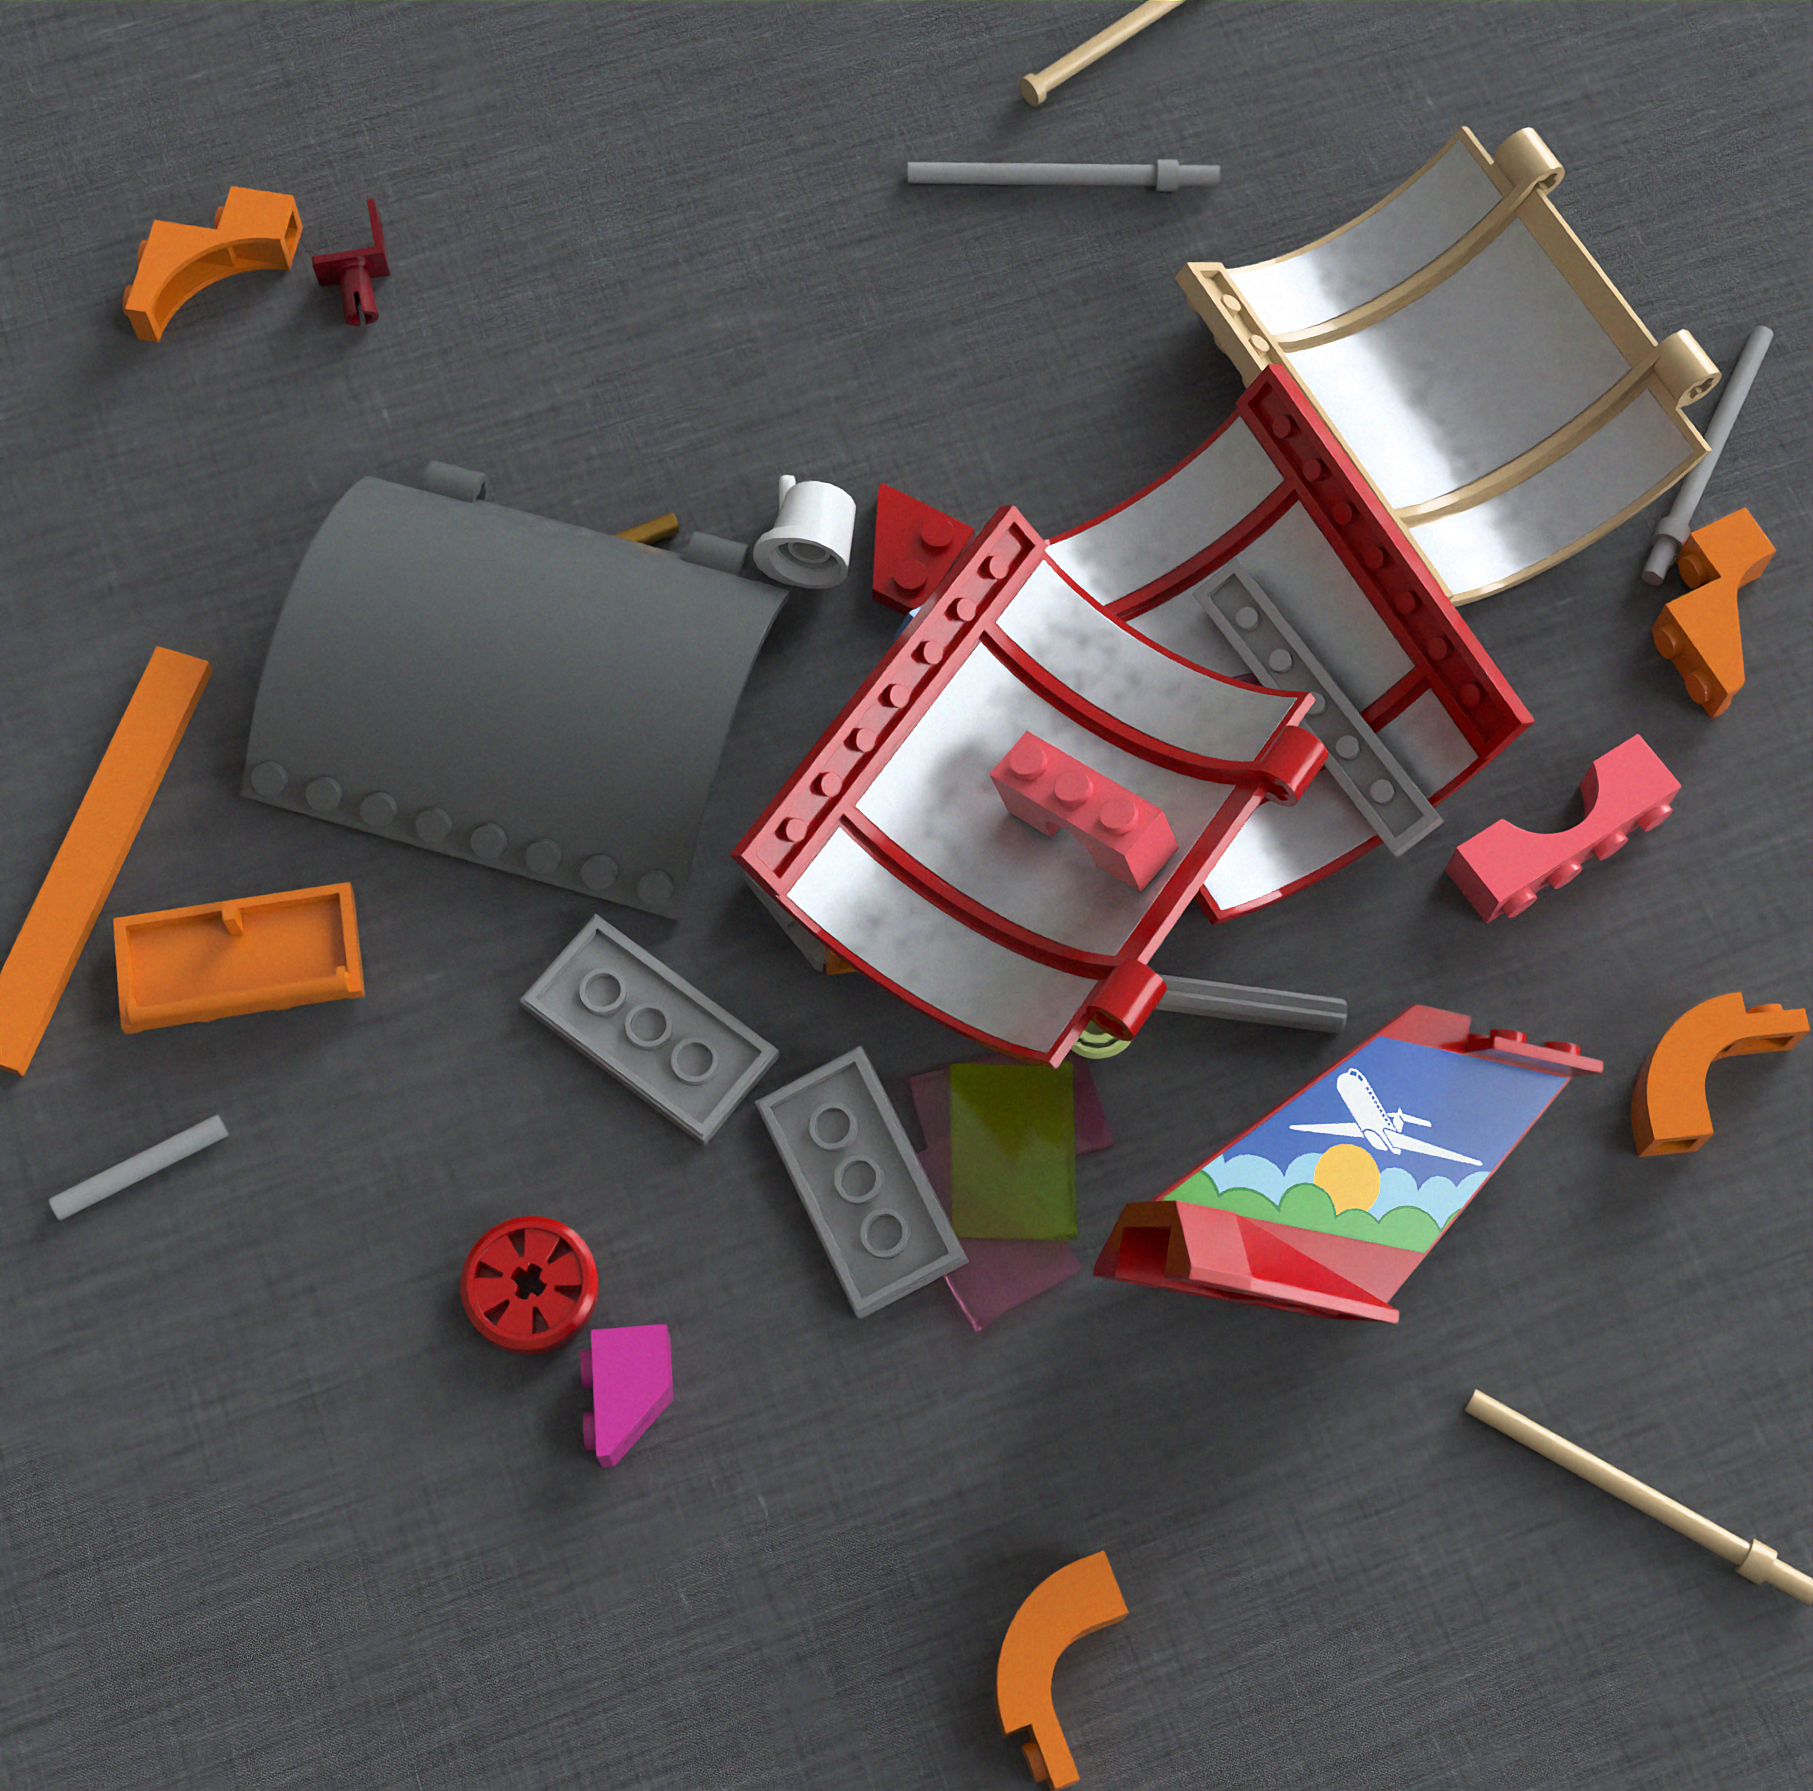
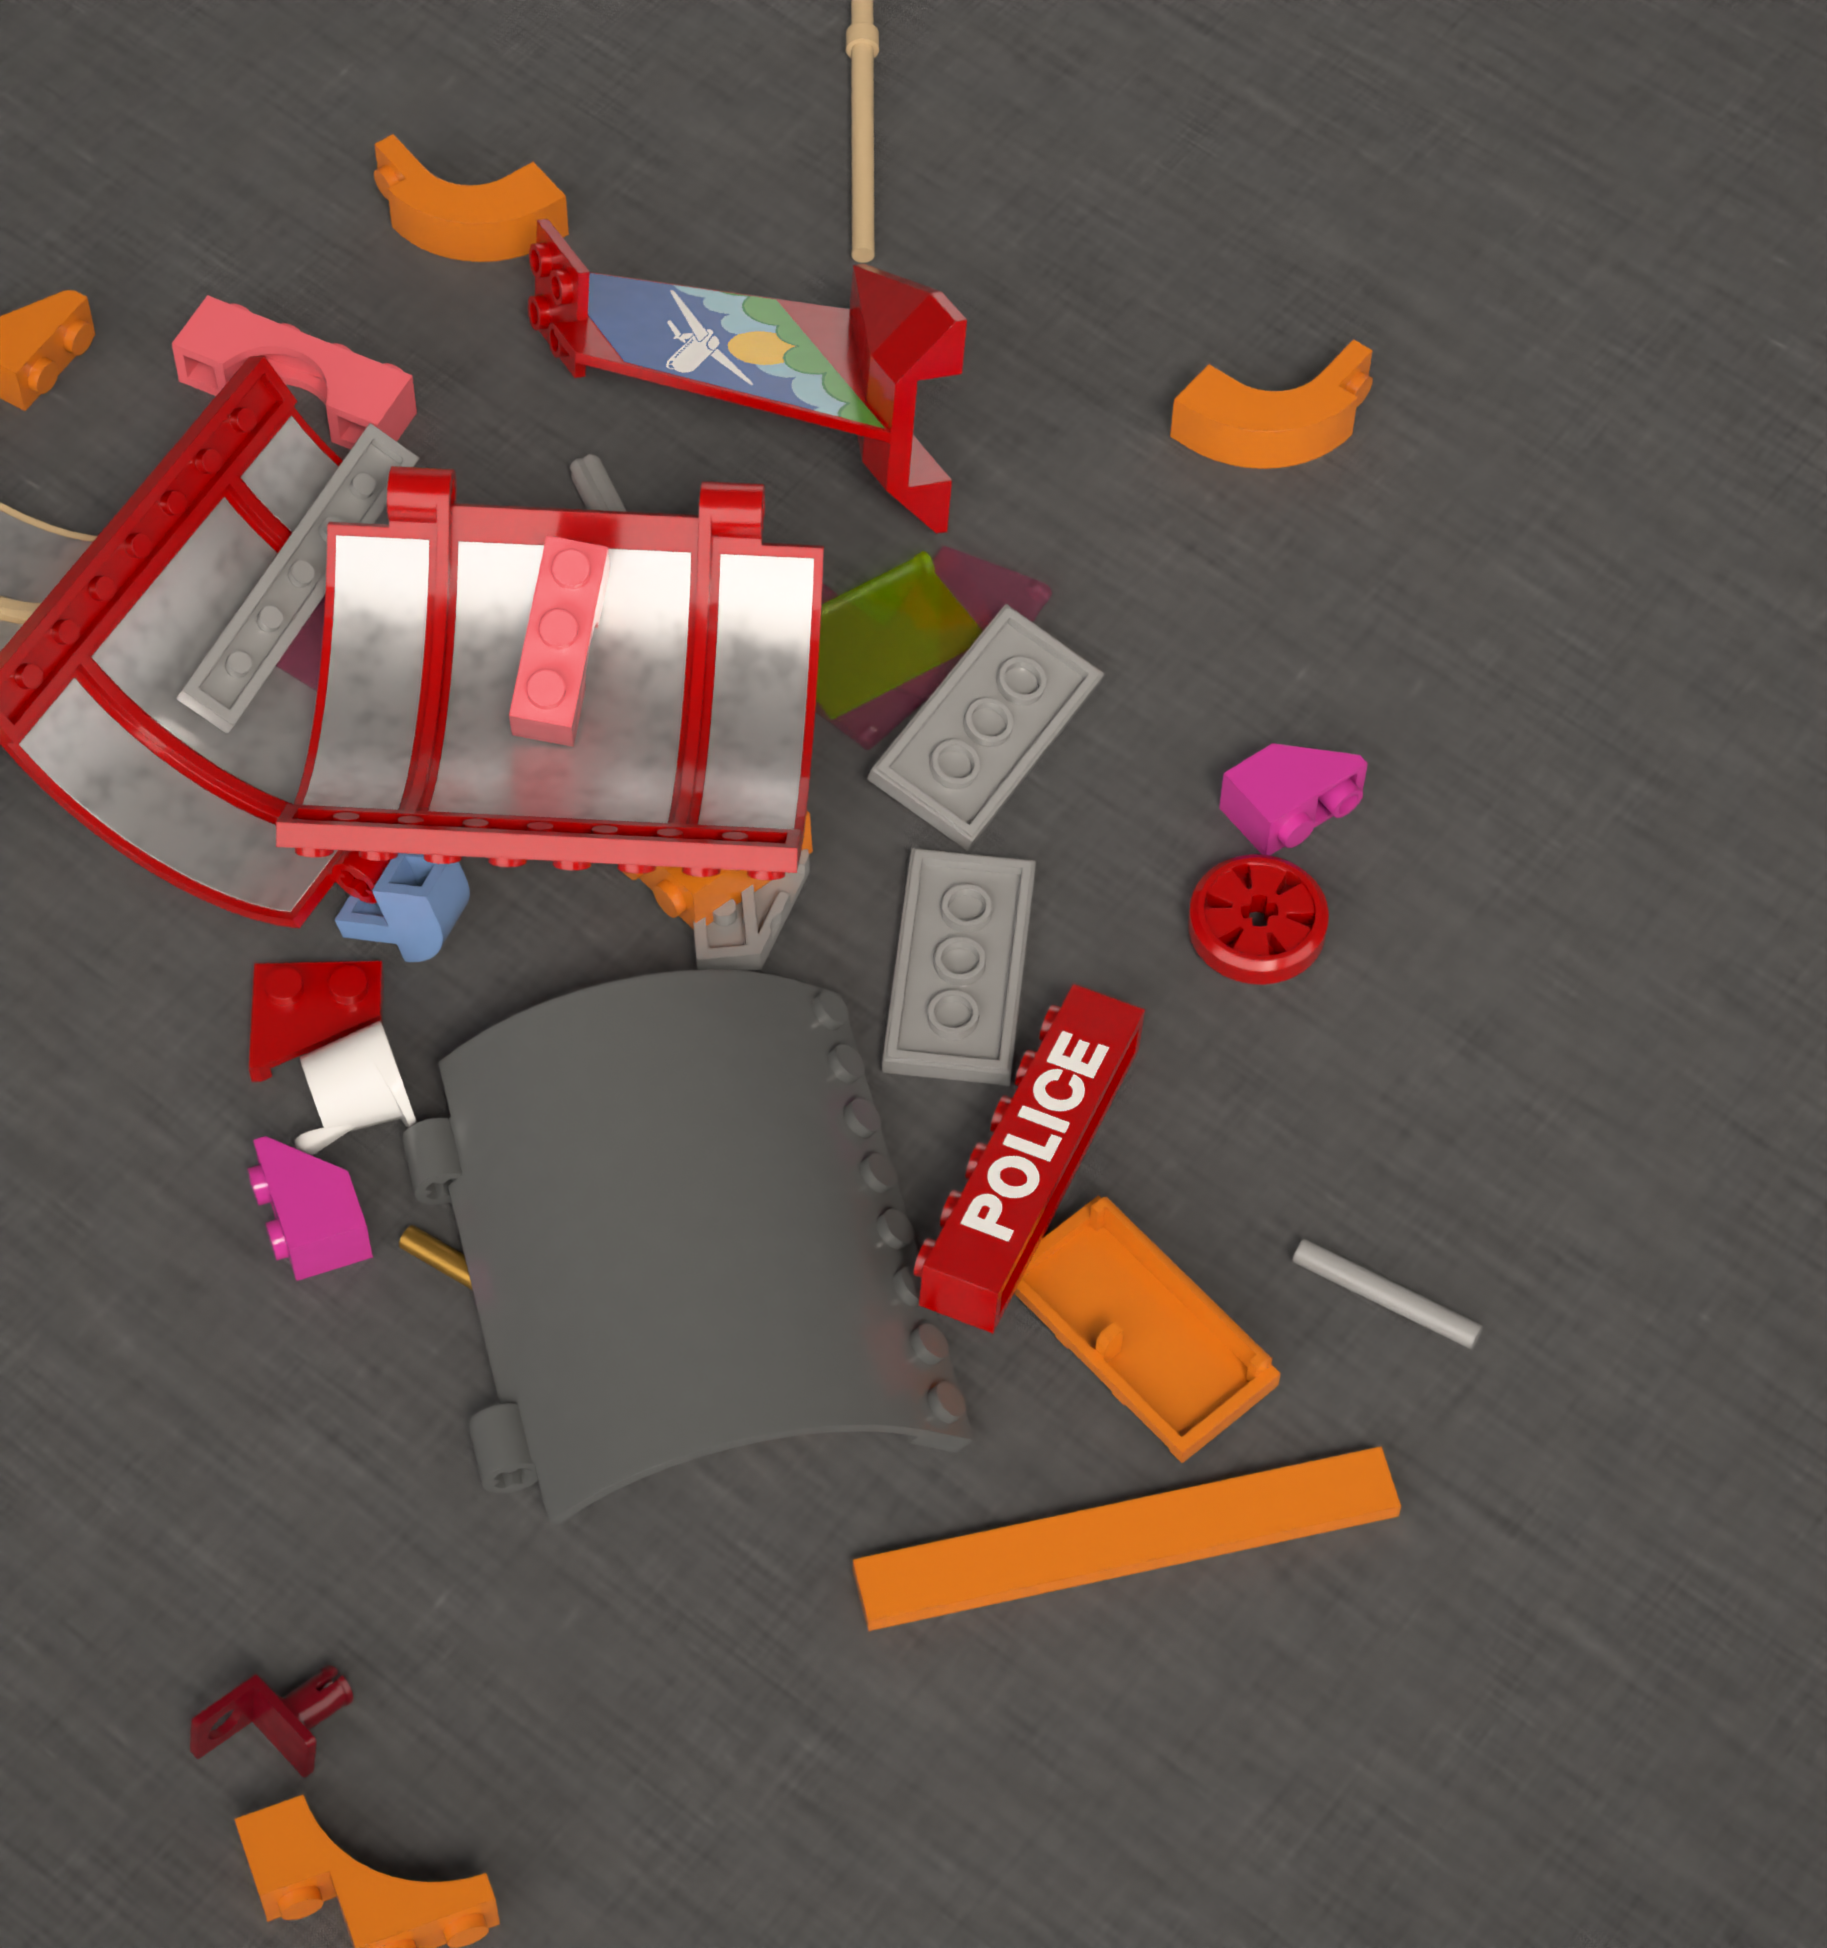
camera: 120 degrees left, 10 degrees down
(418, 950) = (1029, 1159): none -> red brick
(733, 462) = (313, 1207): none -> dark pink slope

